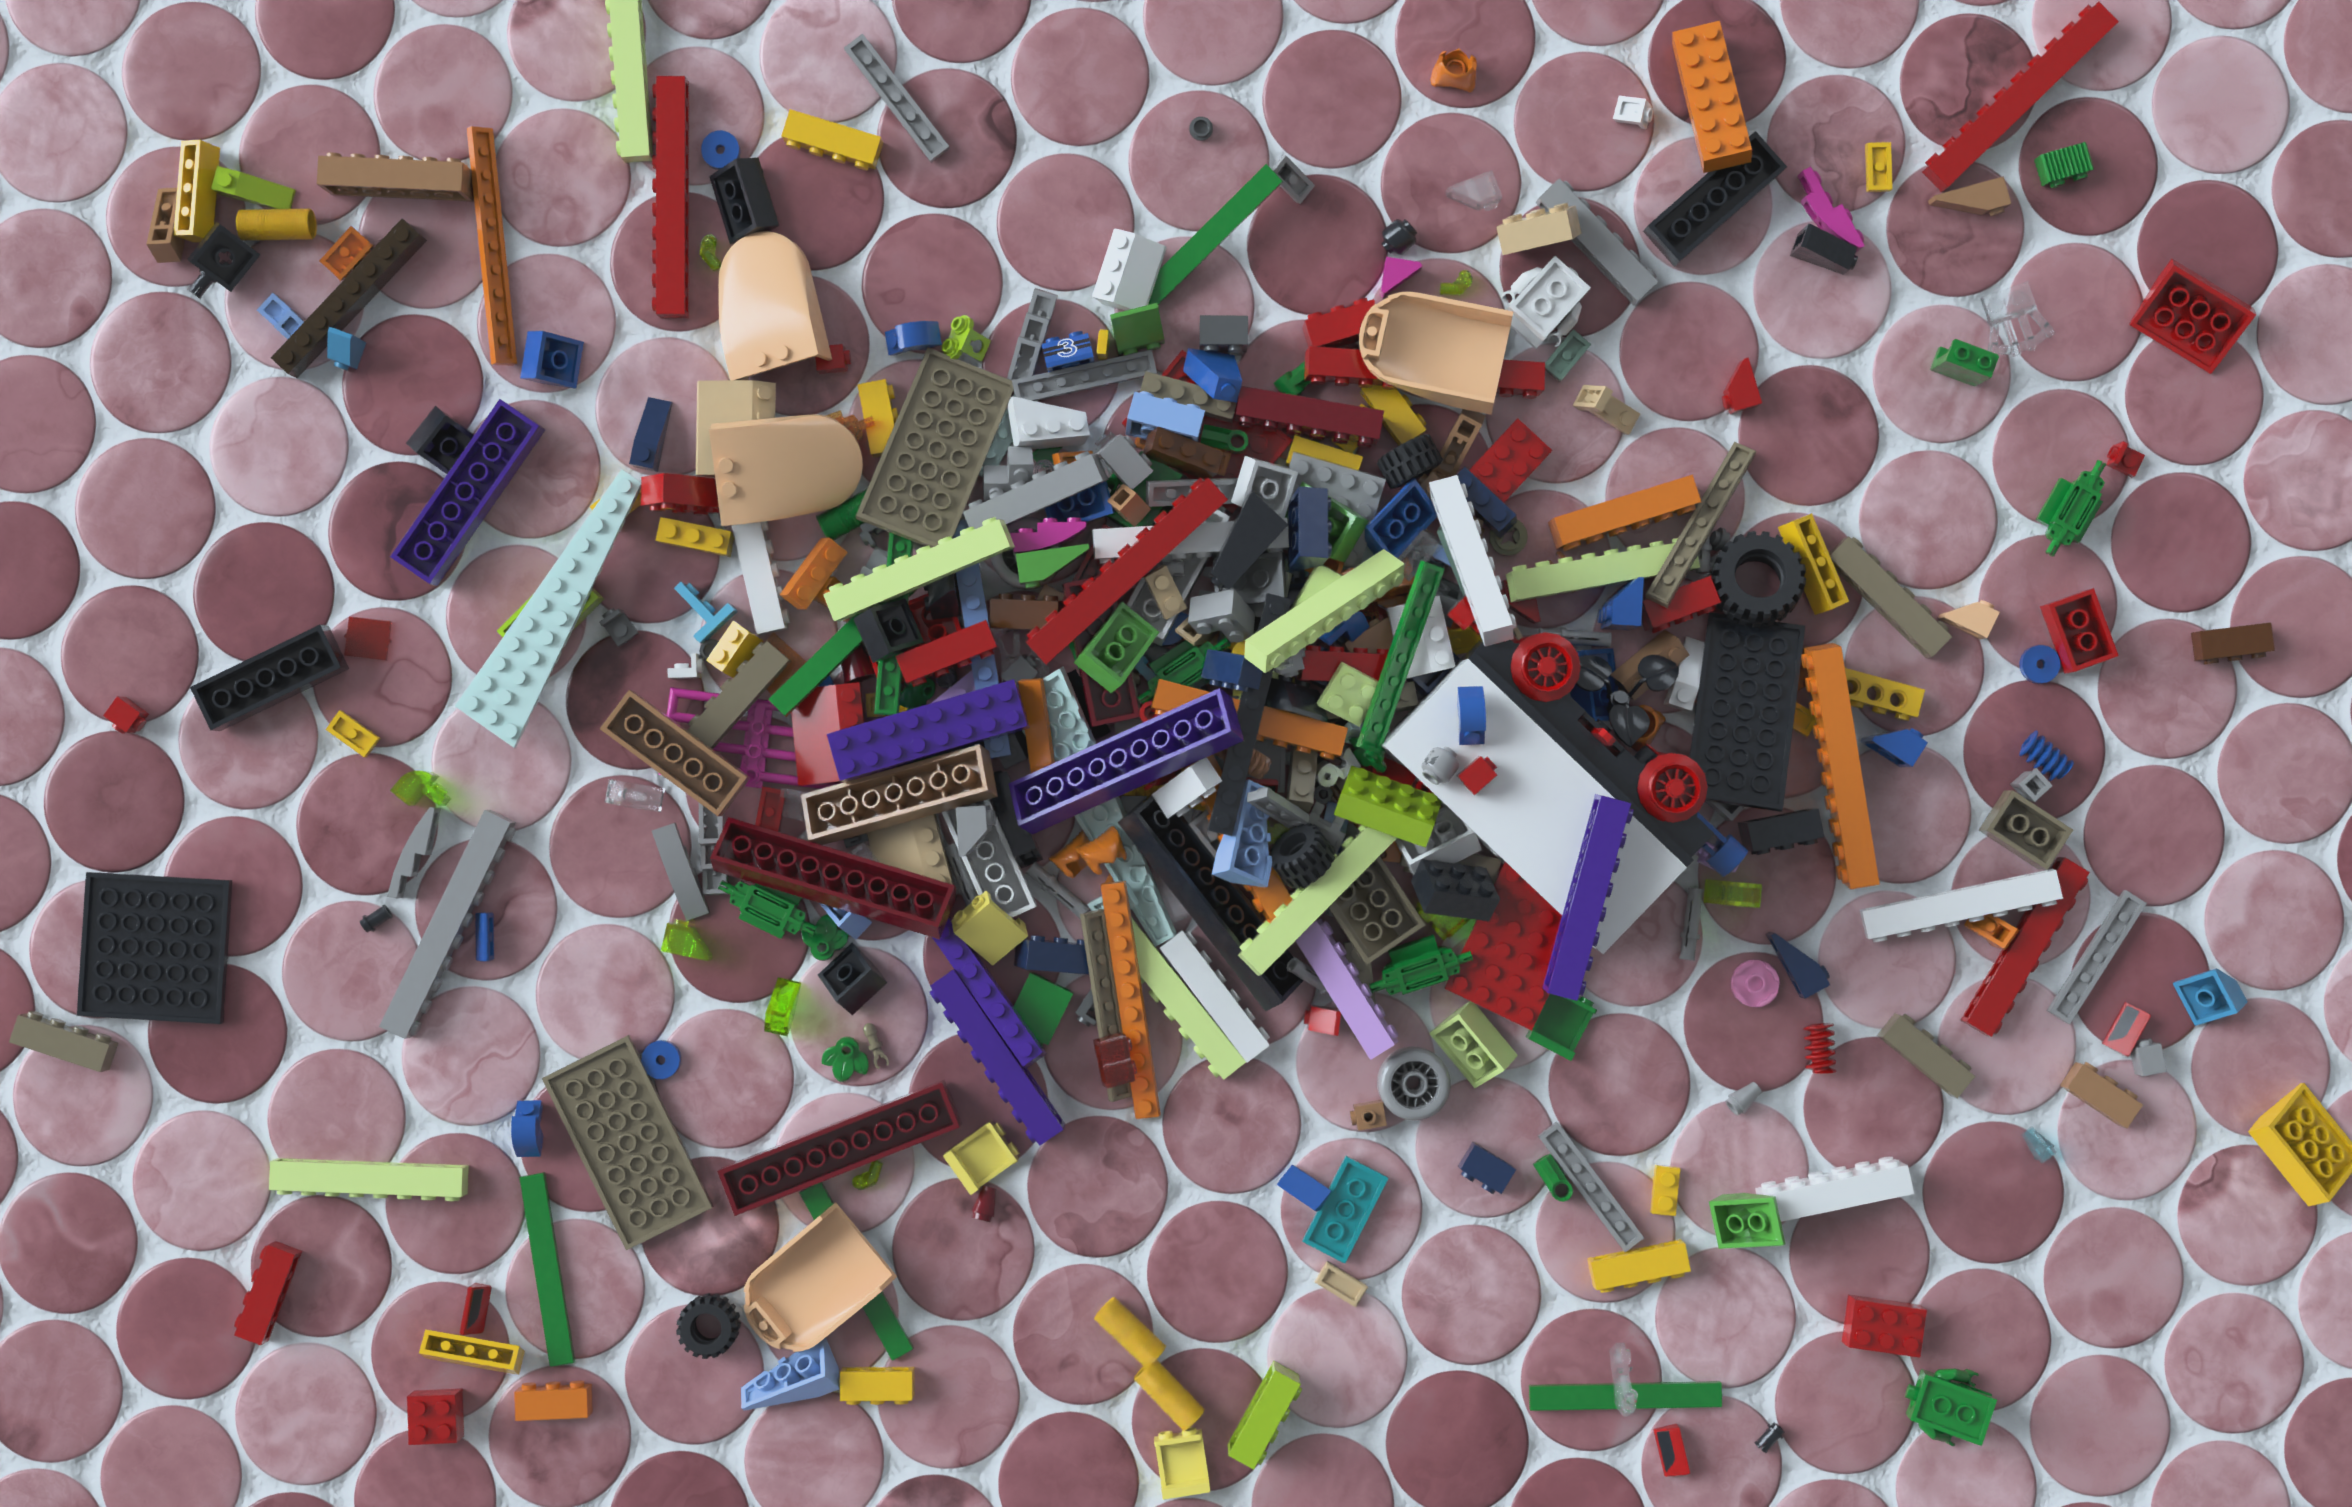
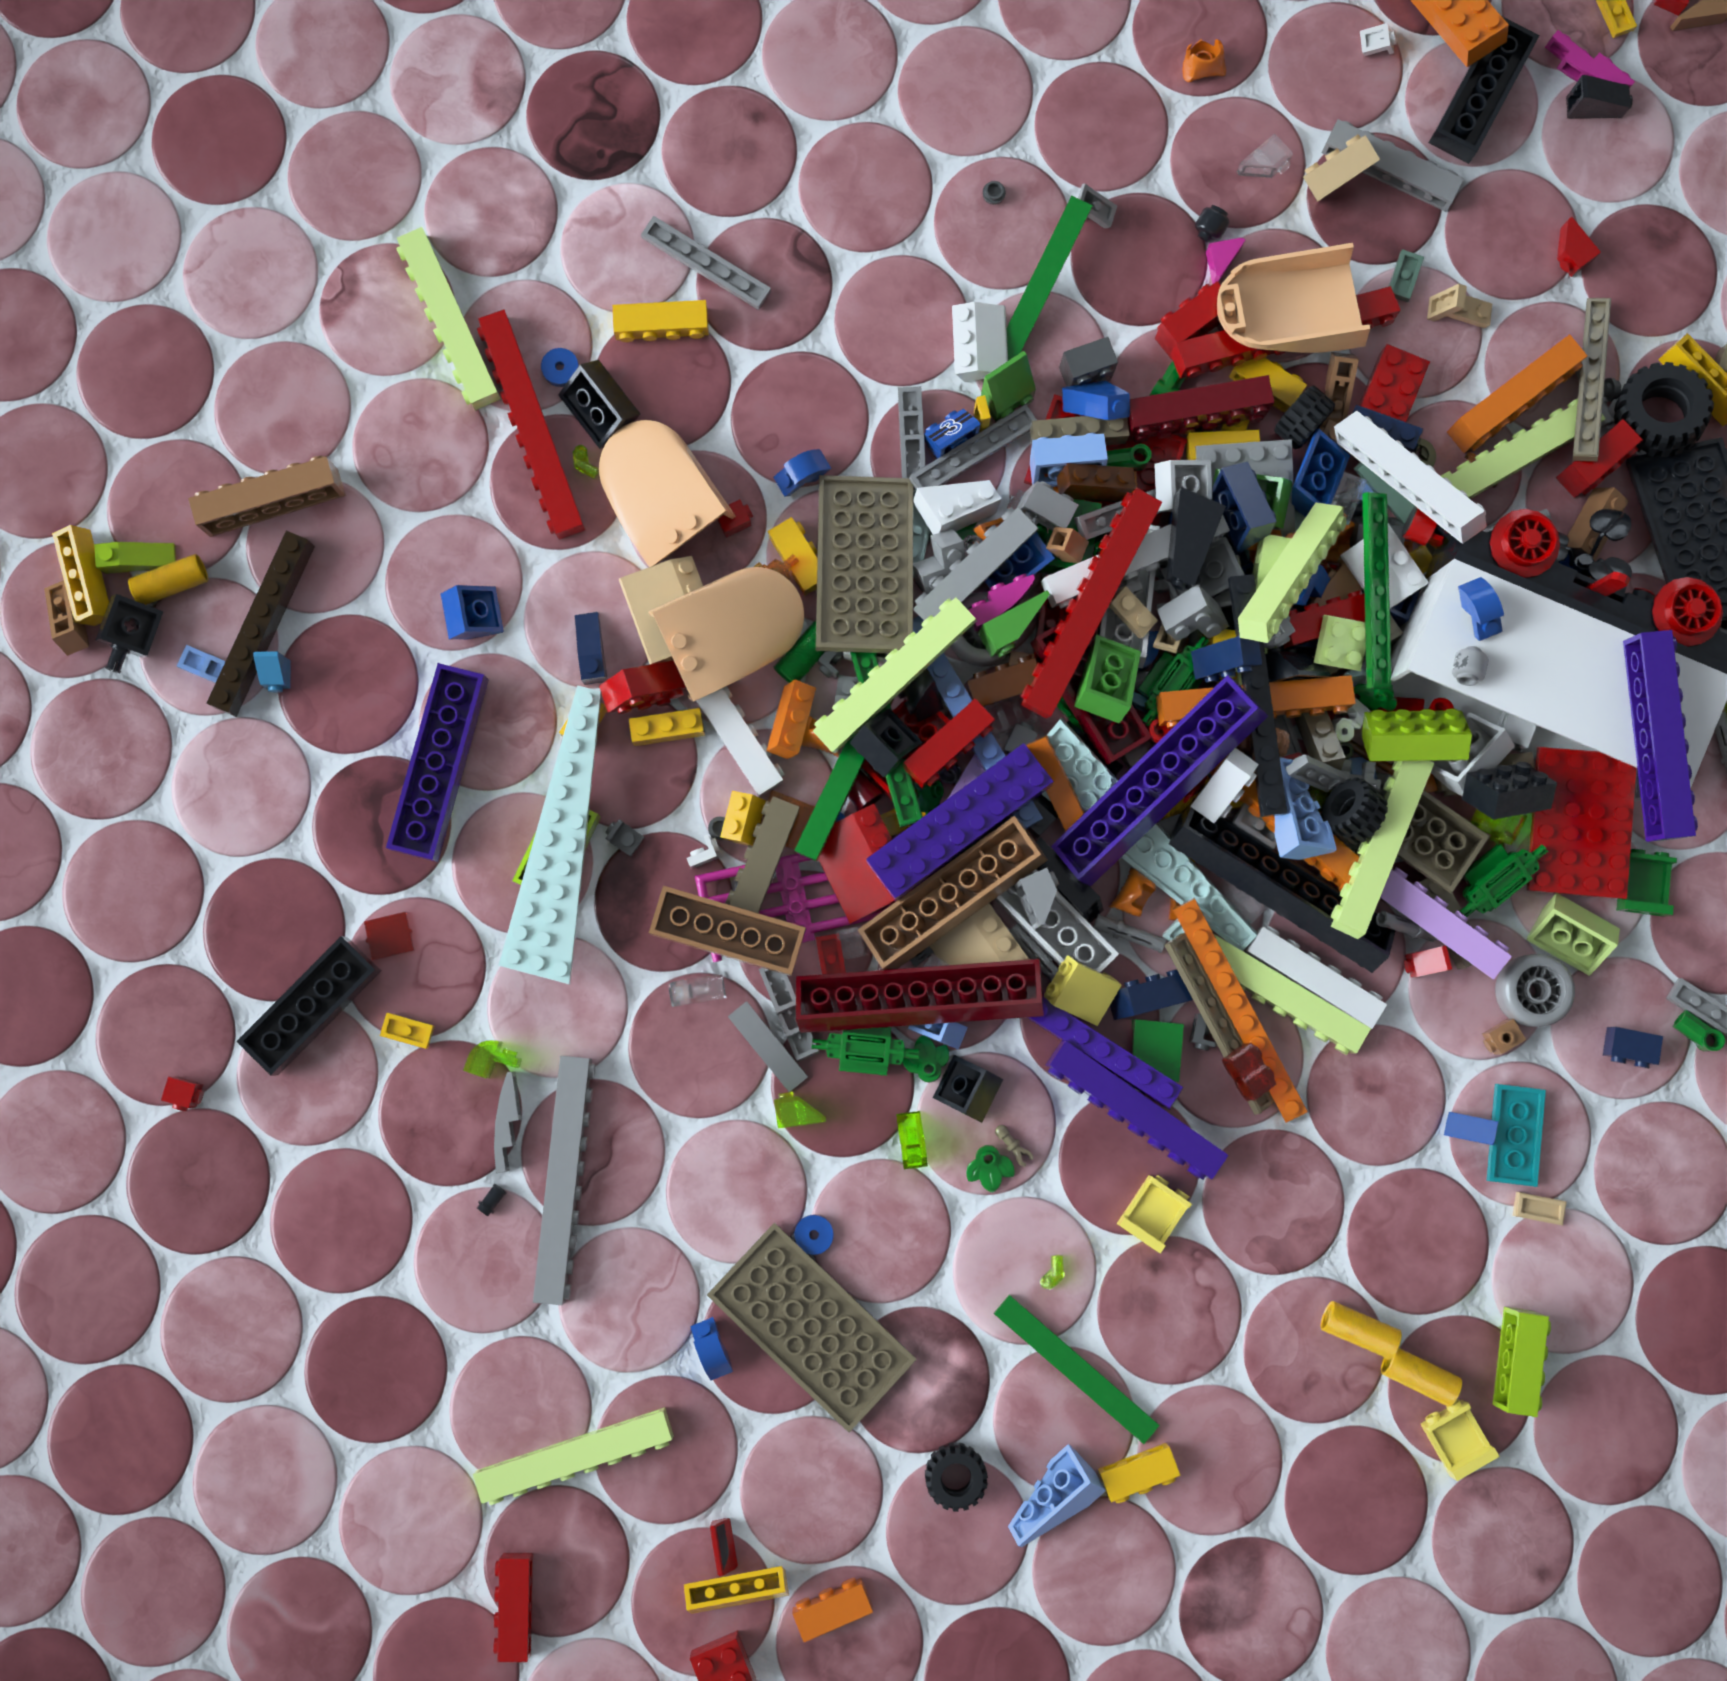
camera: 25 degrees left, 5 degrees down
(64, 1042) = (229, 1432): dark tan brick -> none
(154, 948) = (286, 1308): black plate -> none
(346, 253) = (244, 583): orange bracket -> none
(440, 439) = (394, 723): black slope -> none
(484, 936) = (601, 1179): blue slope -> none
(491, 246) = (378, 529): orange plate -> none
(547, 1269) = (778, 1481): green tile -> none
(706, 611) = (701, 792): medium azure bracket -> none
(814, 1283) = (1044, 1396): light nougat windscreen -> none
(839, 1147) = (1017, 1255): brick -> none
(961, 337) = (846, 457): lime bracket -> none
(985, 1204) = (1175, 1258): dark red cone -> none
(1102, 850) = (1163, 874): orange hair -> none
(1459, 286) = (1283, 247): clear neon green arm -> none
(1477, 774) = (1508, 661): red brick -> none
(1546, 302) = (1374, 229): white torso -> none
(1624, 608) = (1554, 477): blue slope -> none
(1685, 688) = (1638, 540): white slope -> none

